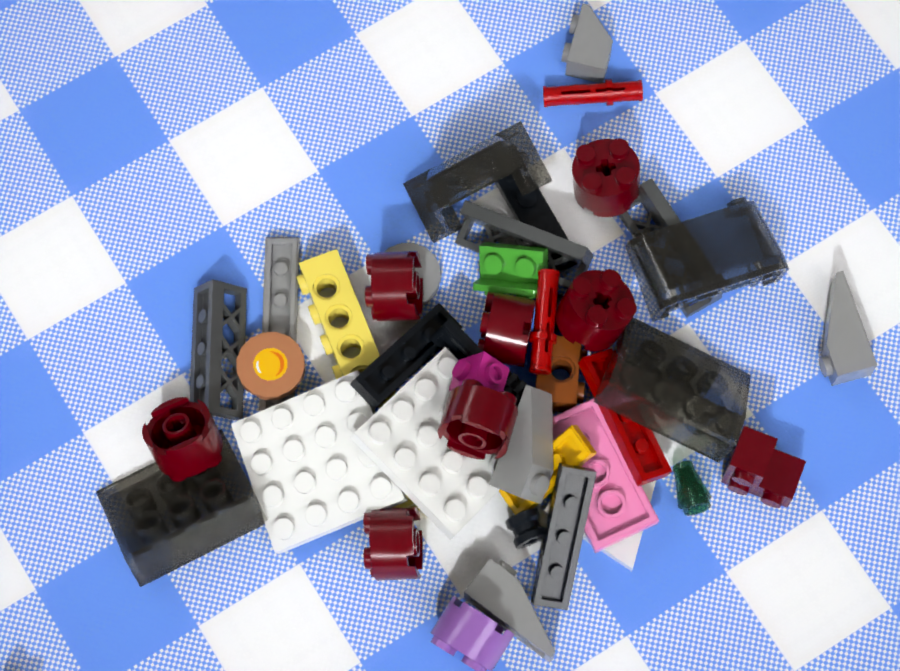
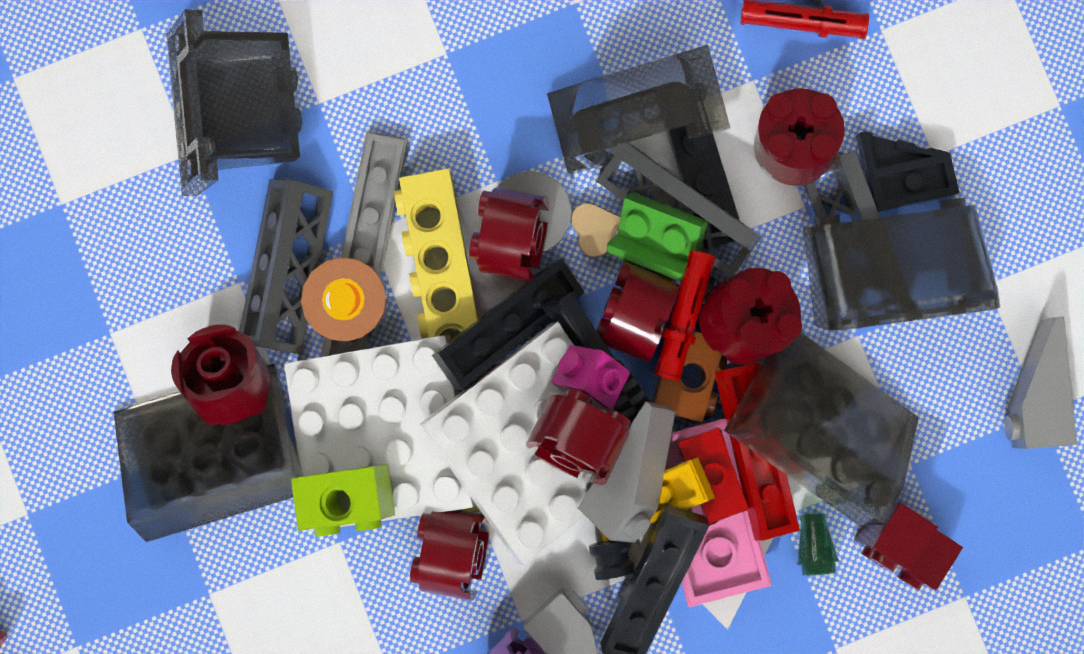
camera: 10 degrees right, 15 degrees up
(152, 231) = (230, 100): none -> clear smoke windscreen
(278, 509) = (318, 495): none -> lime brick
(460, 278) = (595, 228): none -> tan tile
(608, 452) = (719, 472): none -> red plate
(695, 190) = (903, 173): none -> black wing

